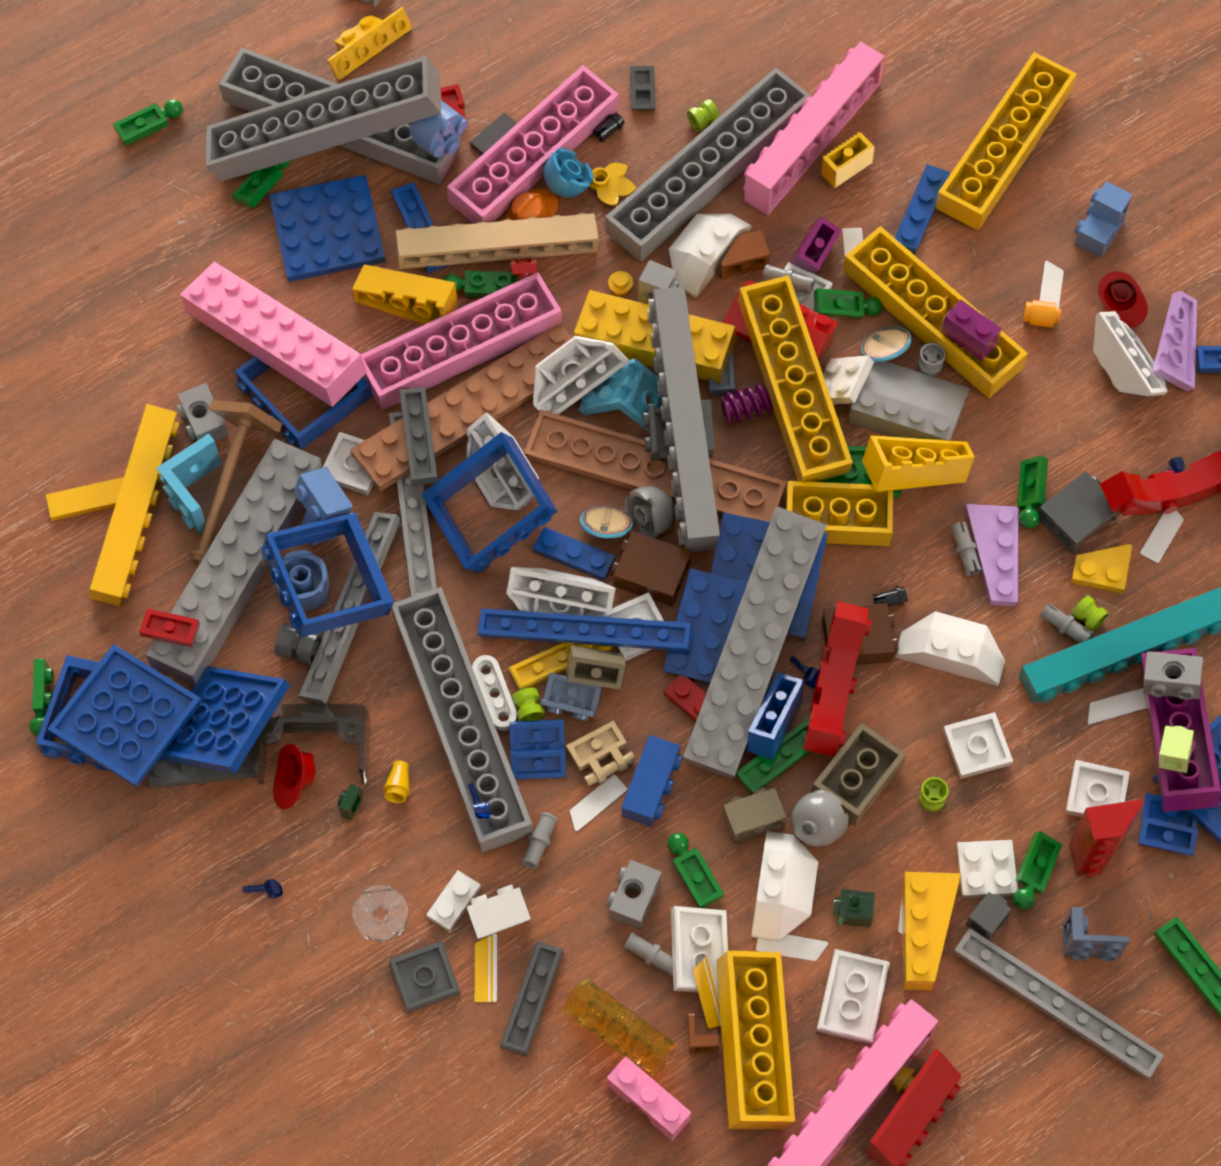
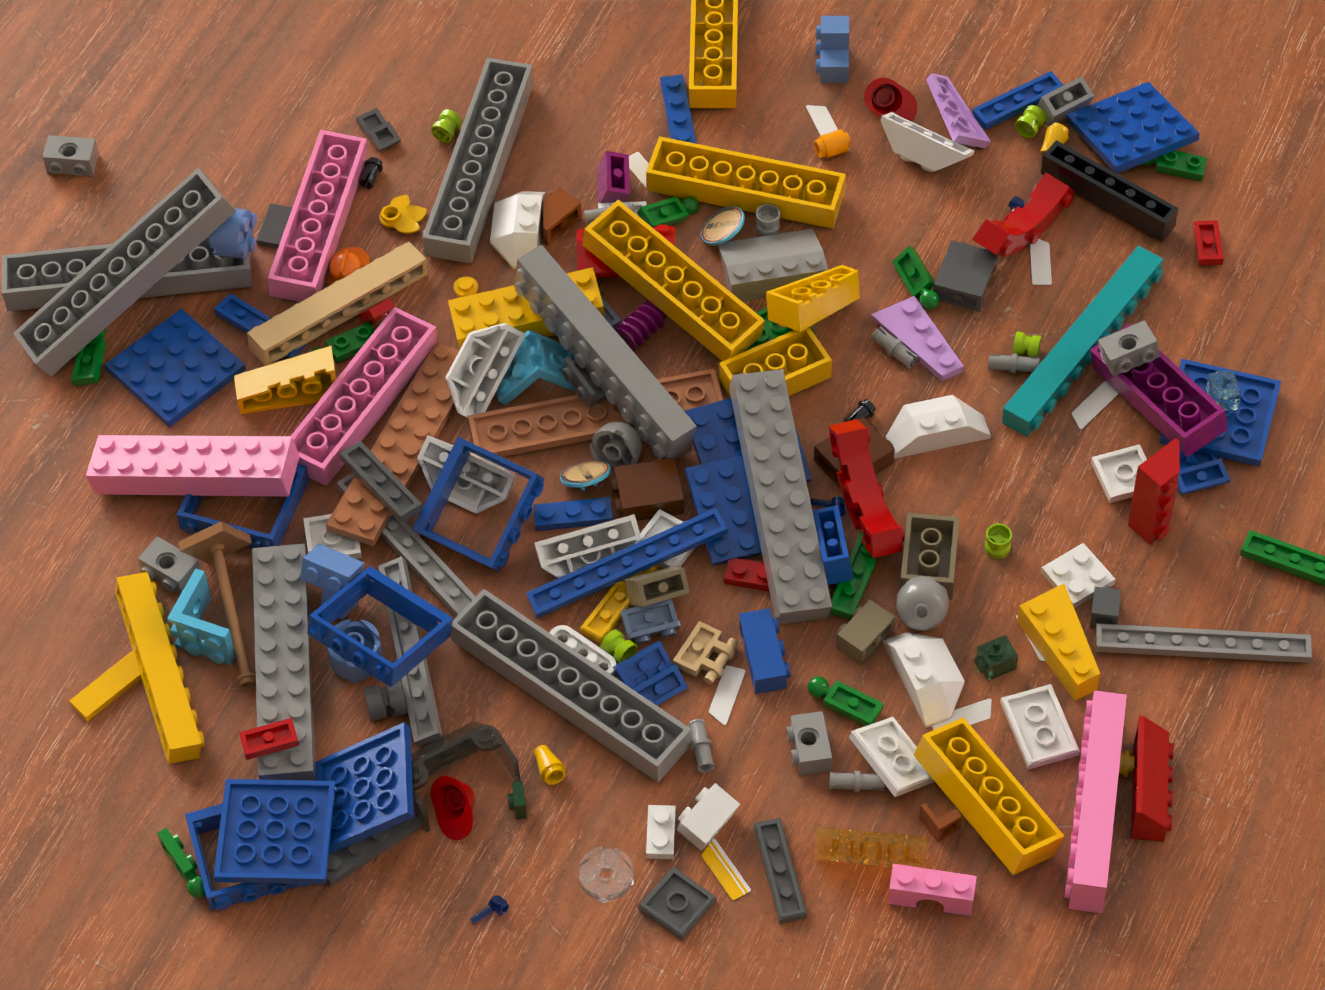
camera: 30 degrees left, 10 degrees down
(367, 40) = (107, 202): yellow bracket -> none
(481, 809) = (641, 739): clear blue hand -> none
(566, 174) = (361, 224): dark azure cylinder -> none
(655, 277) = (502, 266): light grey brick -> none
(708, 991) = (925, 783): yellow sticker -> none
(813, 128) = (548, 91): bright pink brick -> none
(846, 378) = (714, 260): white plate -> none
(847, 160) = (593, 102): yellow brick -> none
(971, 330) = (791, 175): magenta brick -> none
(977, 745) = (1007, 487): white plate -> none
(1036, 869) = (1117, 554): green plate -> none
(1086, 946) = (1192, 586): sand blue bracket -> none
(1103, 568) = (1013, 309): yellow wing -> none
(1176, 748) = (1170, 397): yellowish green brick -> none

